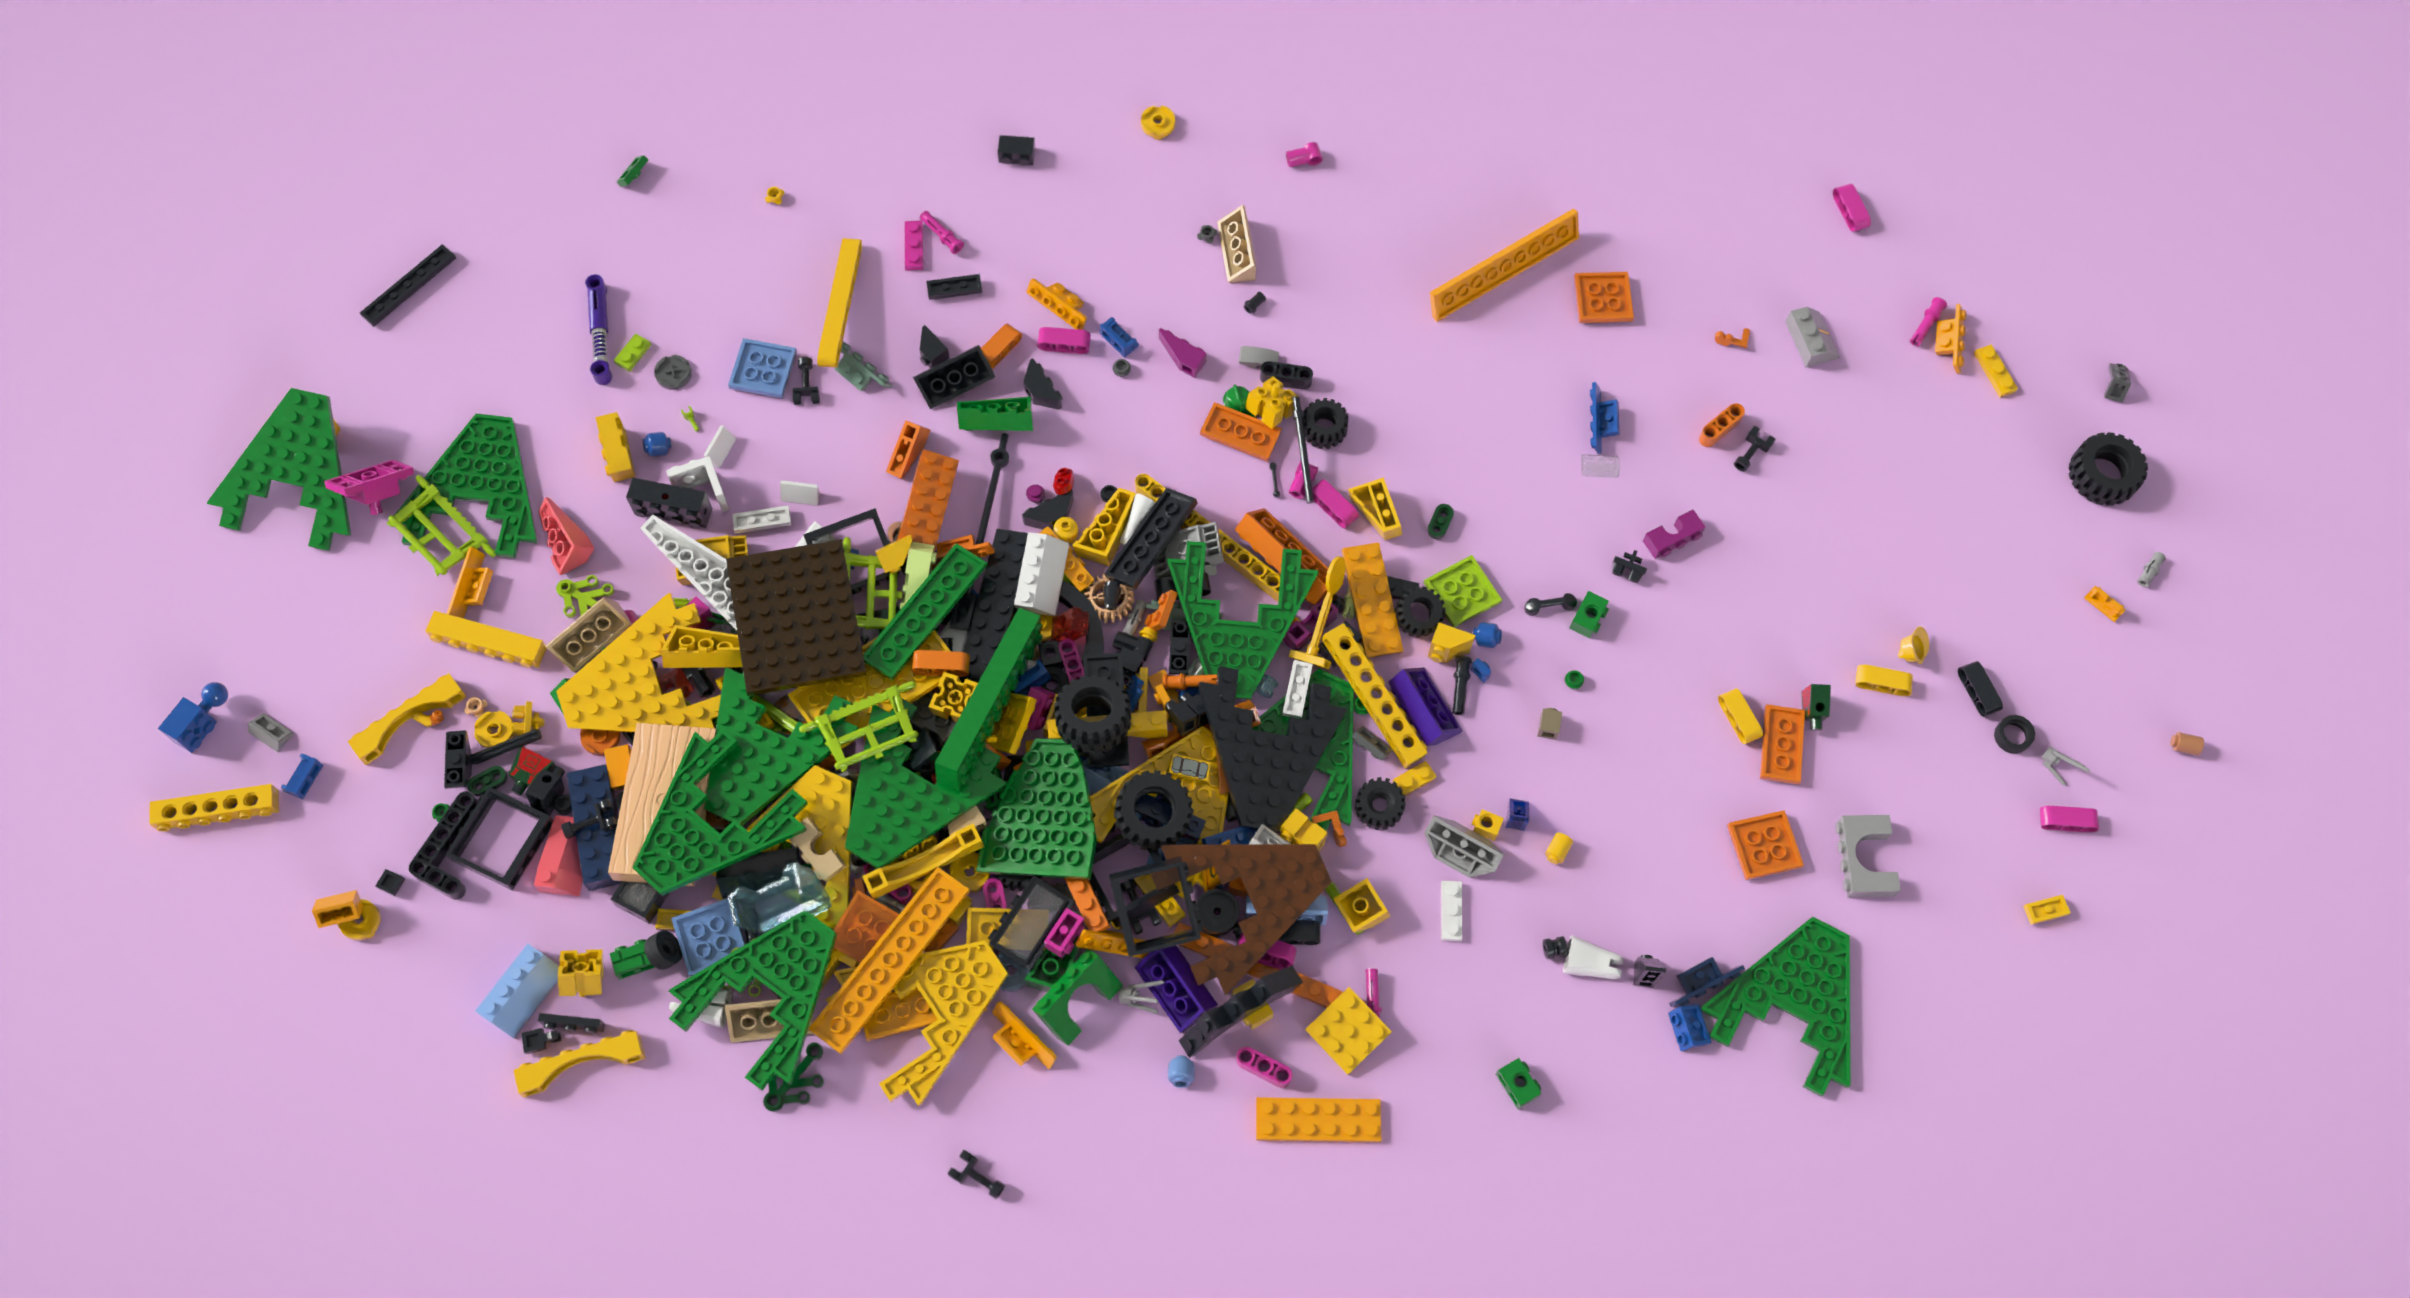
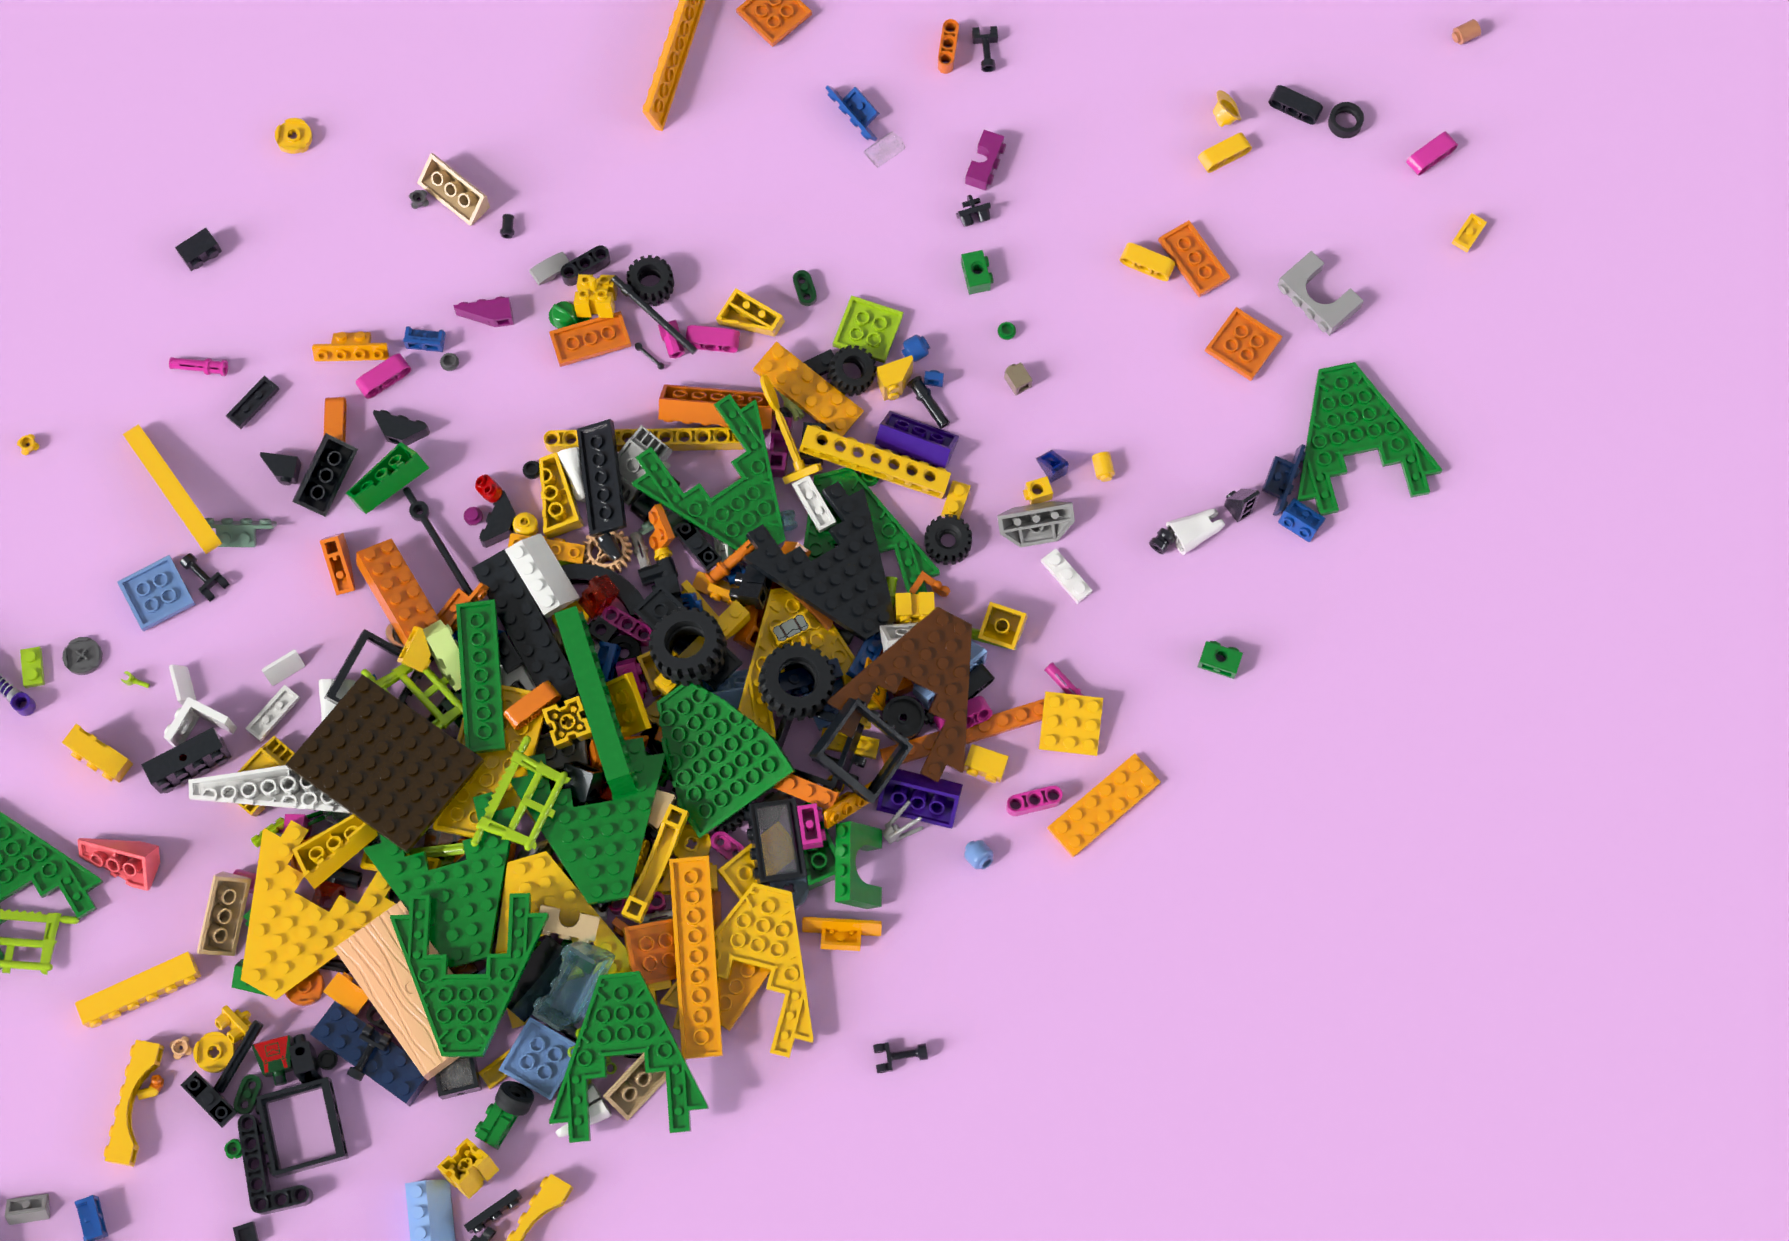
camera: 40 degrees left, 5 degrees up
(471, 584) = (83, 957): light orange bracket -> none
(560, 863) = (367, 1103): coral wedge -> none
(583, 598) = (187, 892): lime plant -> none
(656, 444) = (127, 723): blue head -> none
(797, 1083) = (700, 1123): dark green plant -> none
(914, 245) = (185, 394): dark pink plate -> none
(1238, 1007) = (982, 775): black arch -> none
(1308, 154) = (442, 70): dark pink piece -> none
(1371, 743) = (902, 499): dark grey plate -> none
(1533, 605) = (929, 297): black bar -> none
(1816, 704) = (1194, 208): dark green torso -> none
(2053, 756) = (1385, 115): light grey plant -> none

